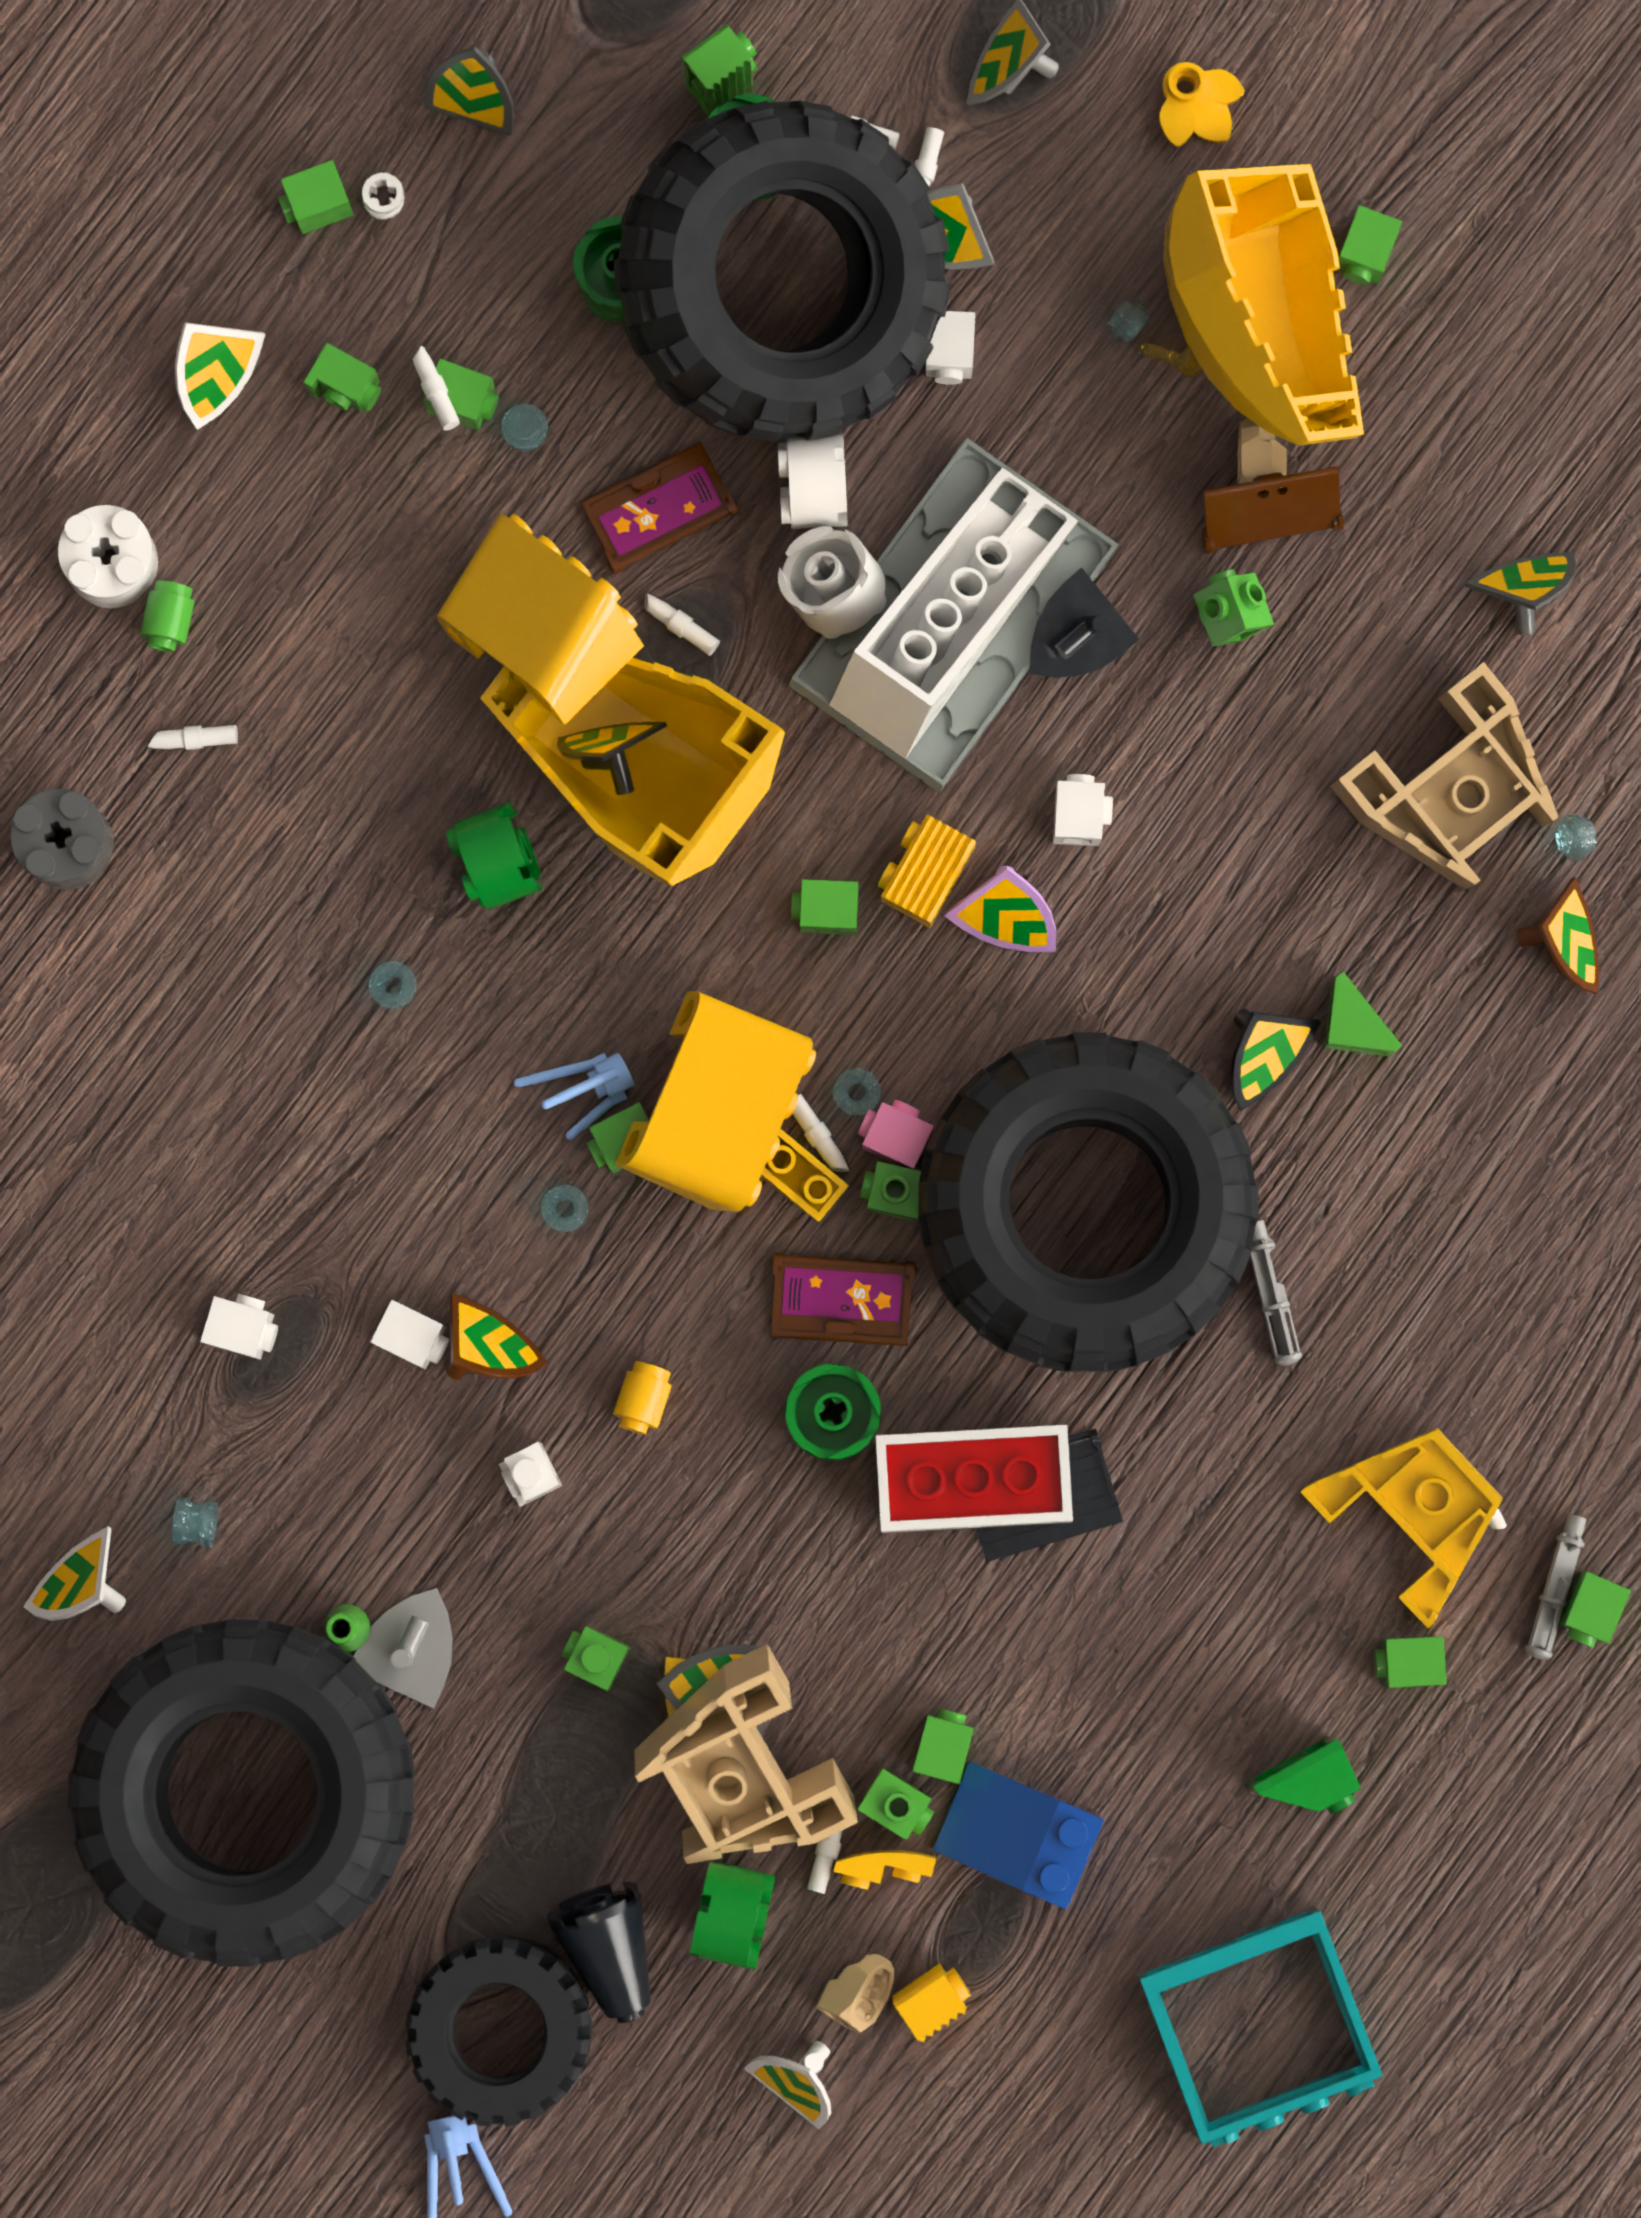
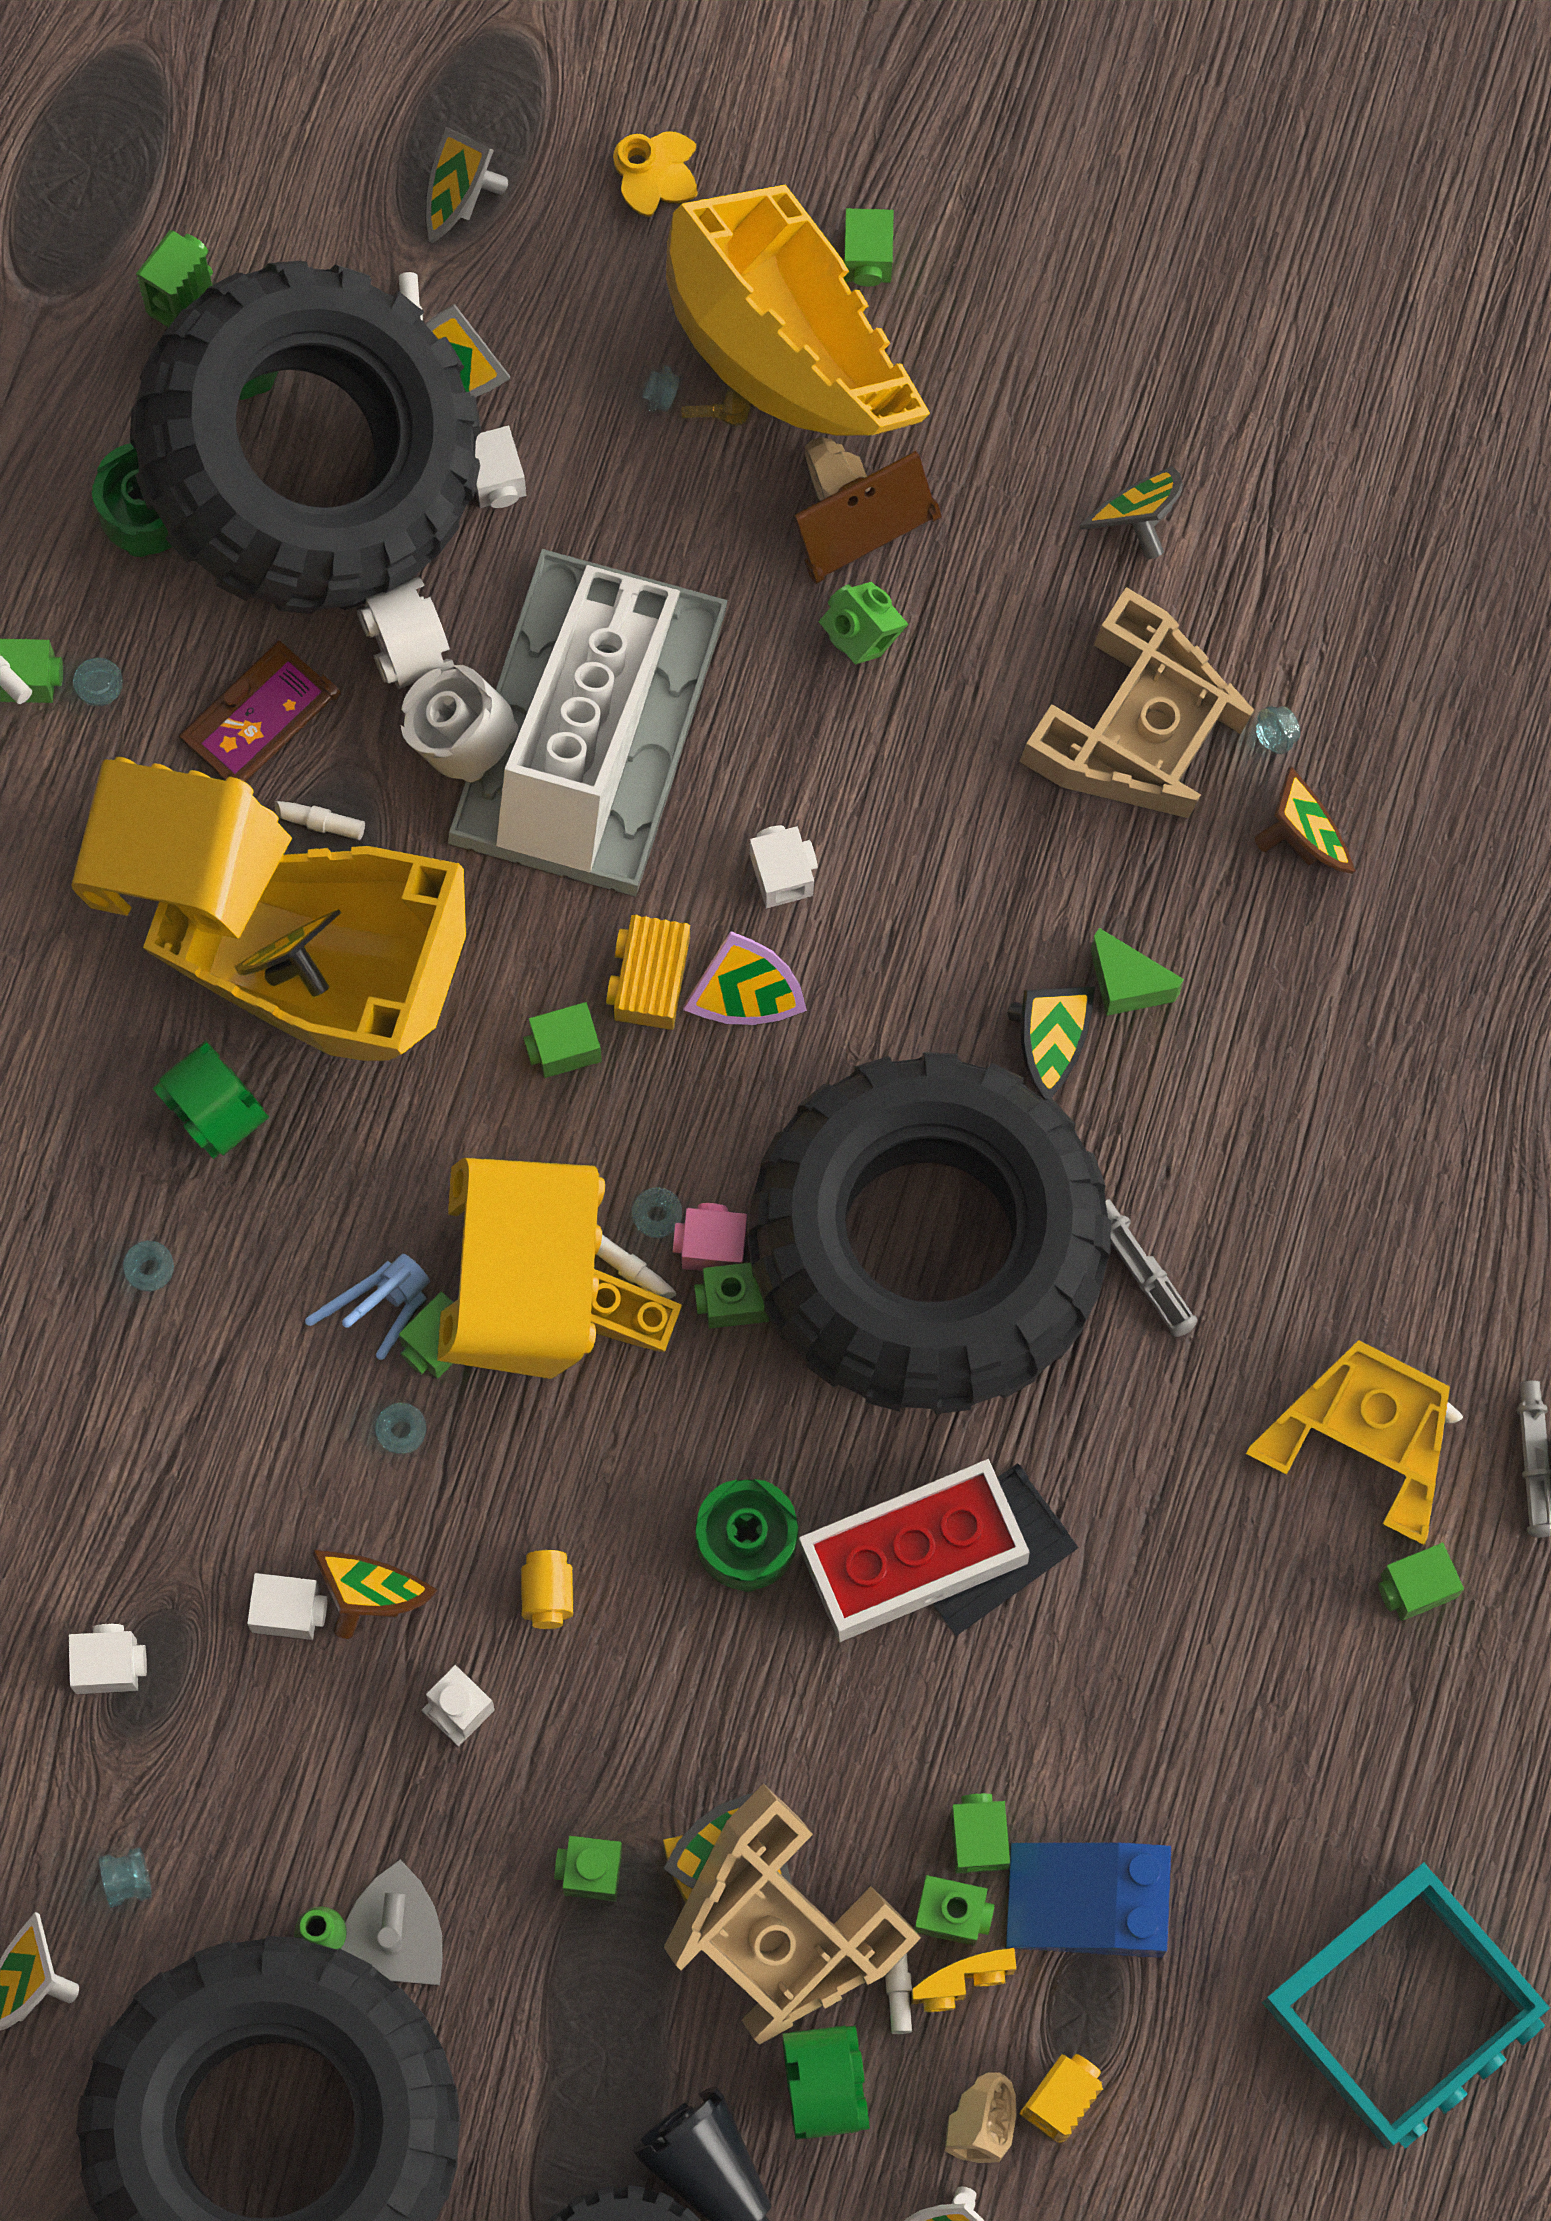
camera: 25 degrees left, 10 degrees down
(858, 1297) = (715, 1421): door -> none
(1078, 631) = (717, 695): black shield -> none
(1311, 1778) = (1365, 1734): green slope -> none

